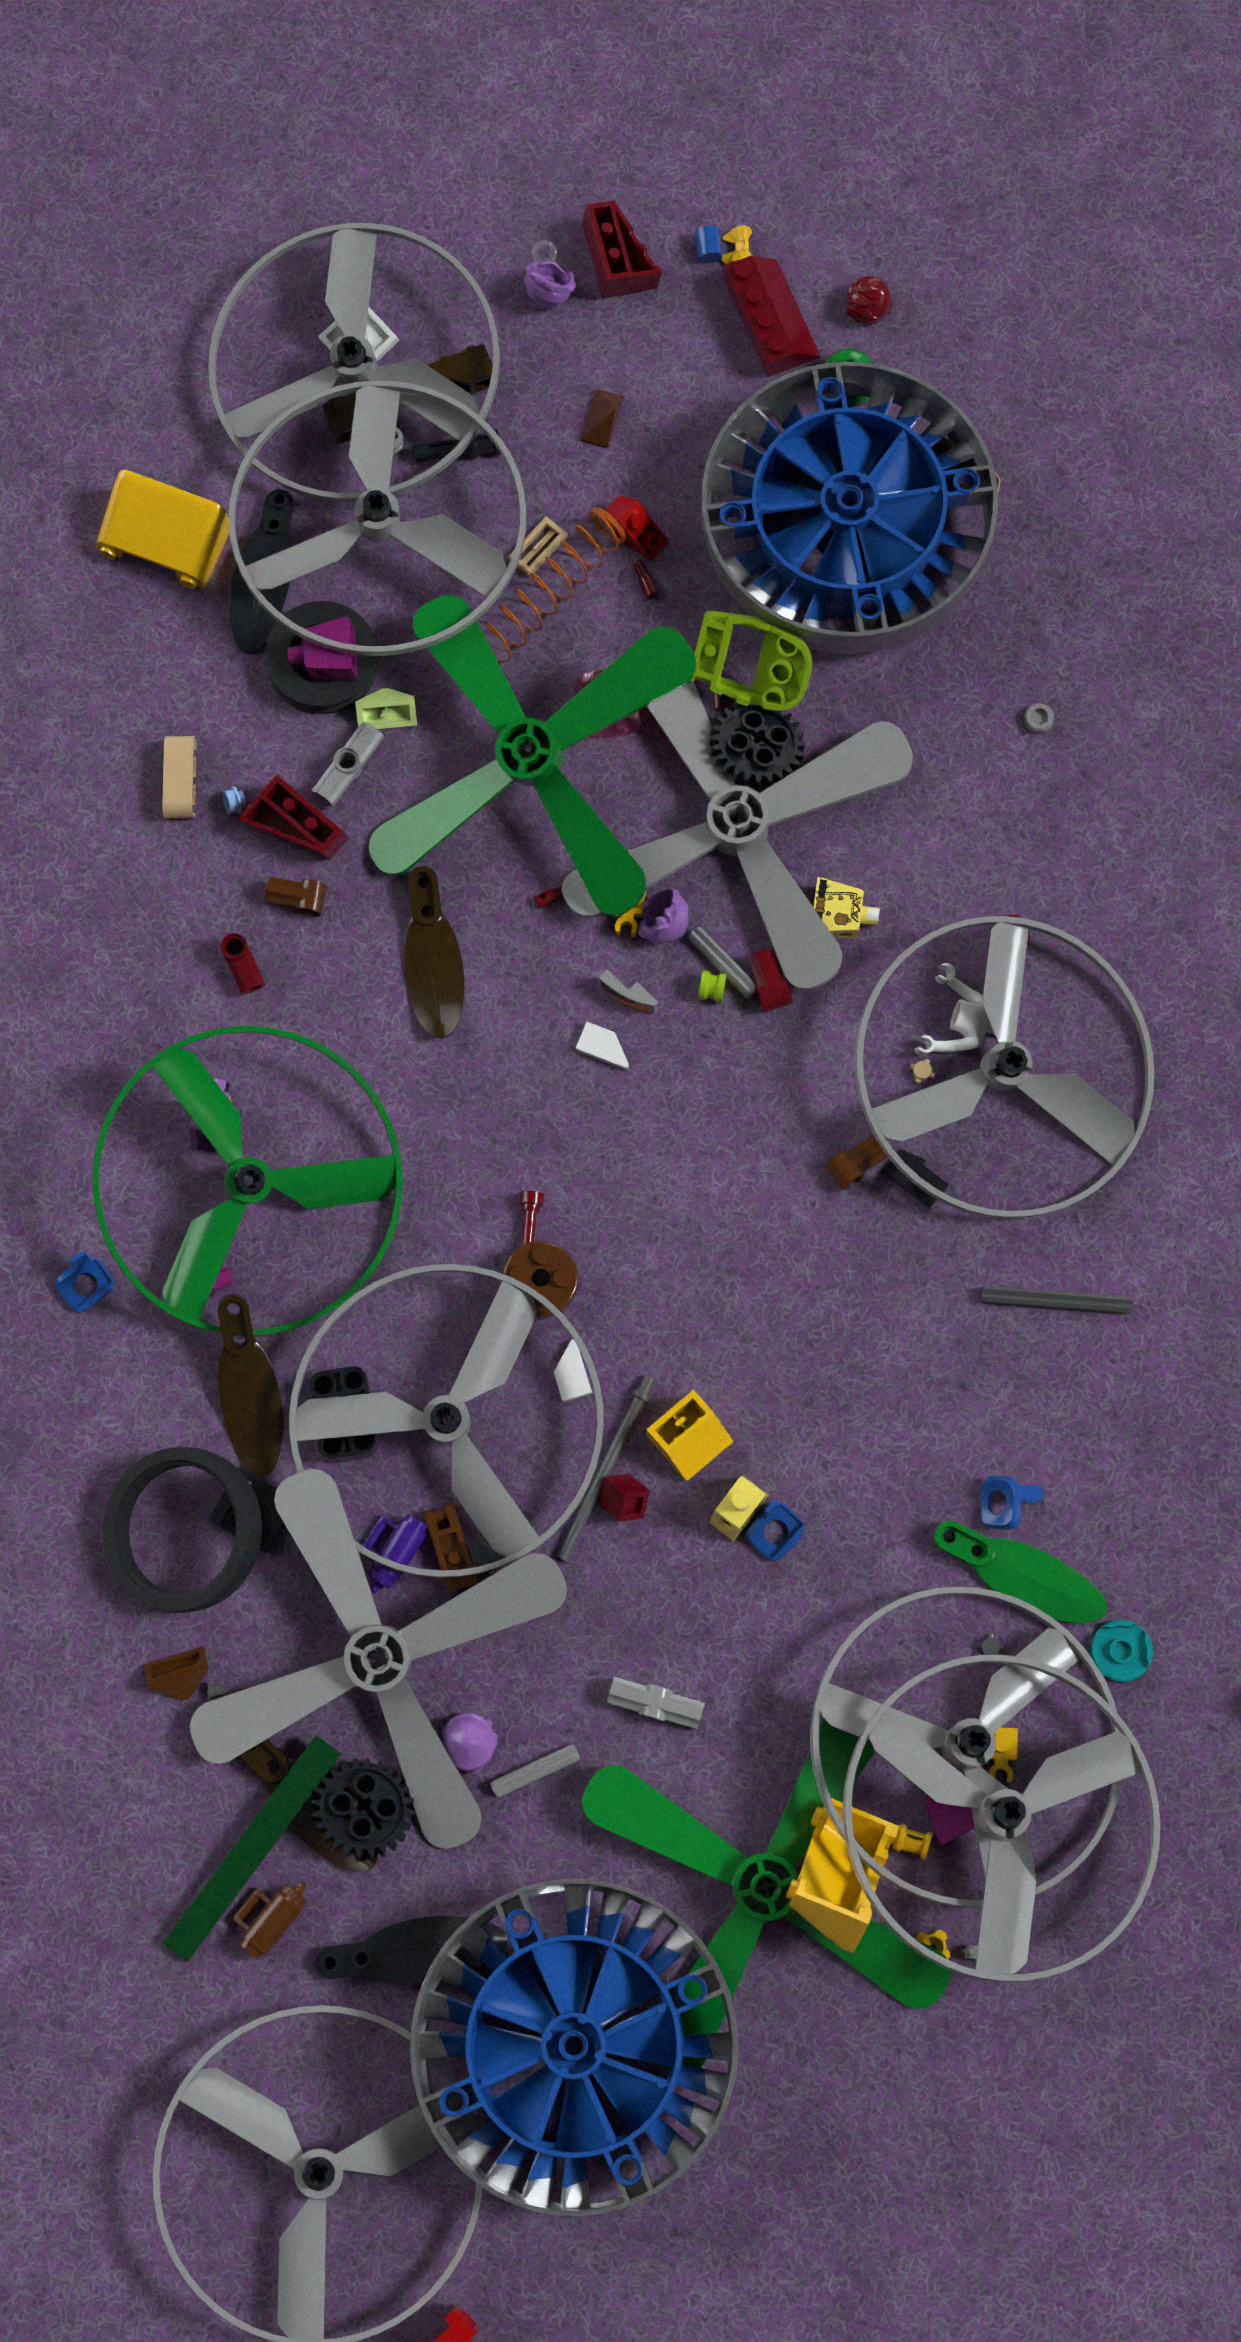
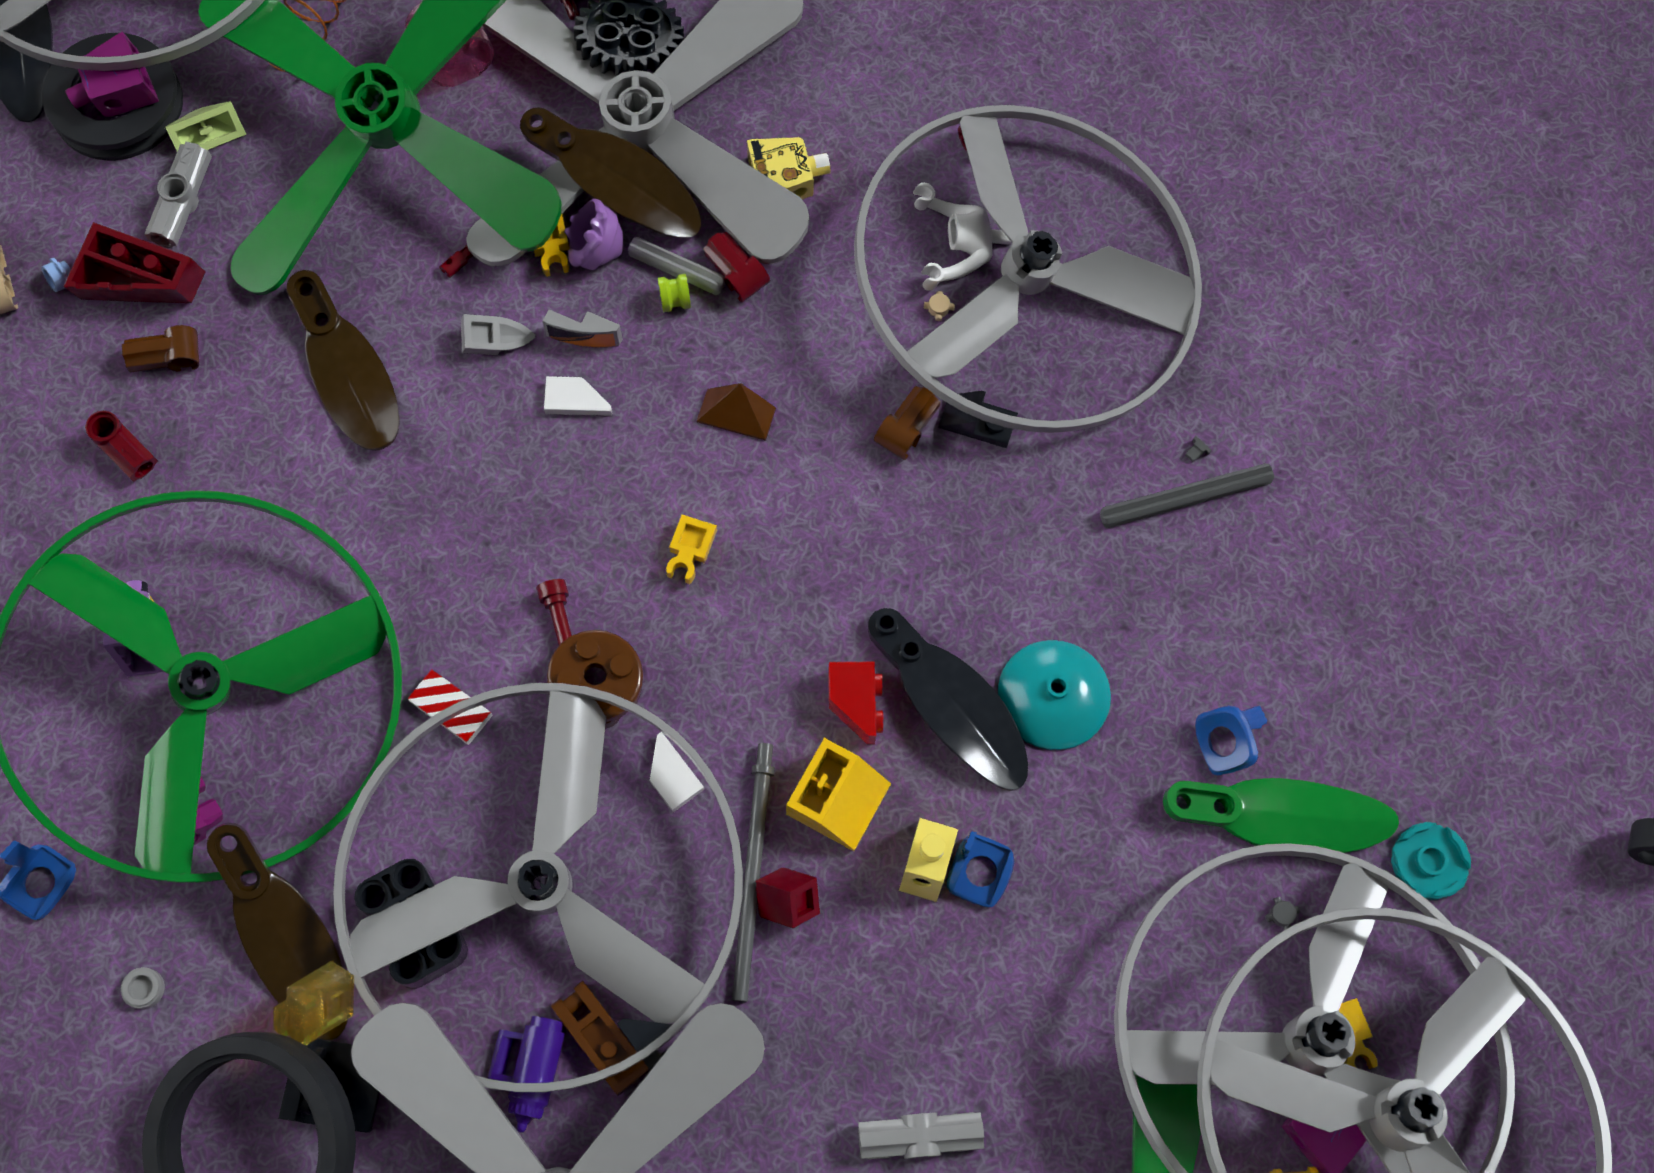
camera: 25 degrees left, 5 degrees down
(136, 1390) = (142, 988): none -> light grey tile
(259, 1448) = (315, 1004): none -> clear yellow piece
(419, 1252) = (437, 694): none -> tile
(556, 971) = (492, 334): none -> light grey plate
(651, 1198) = (690, 543): none -> yellow plate
(701, 872) = (616, 174): none -> dark brown plant
(726, 1103) = (737, 410): none -> reddish brown slope
(729, 1365) = (852, 697): none -> red slope
(805, 1397) = (954, 702): none -> black plant
(879, 1439) = (1048, 717): none -> teal dish
(1081, 1265) = (1197, 449): none -> dark grey piece

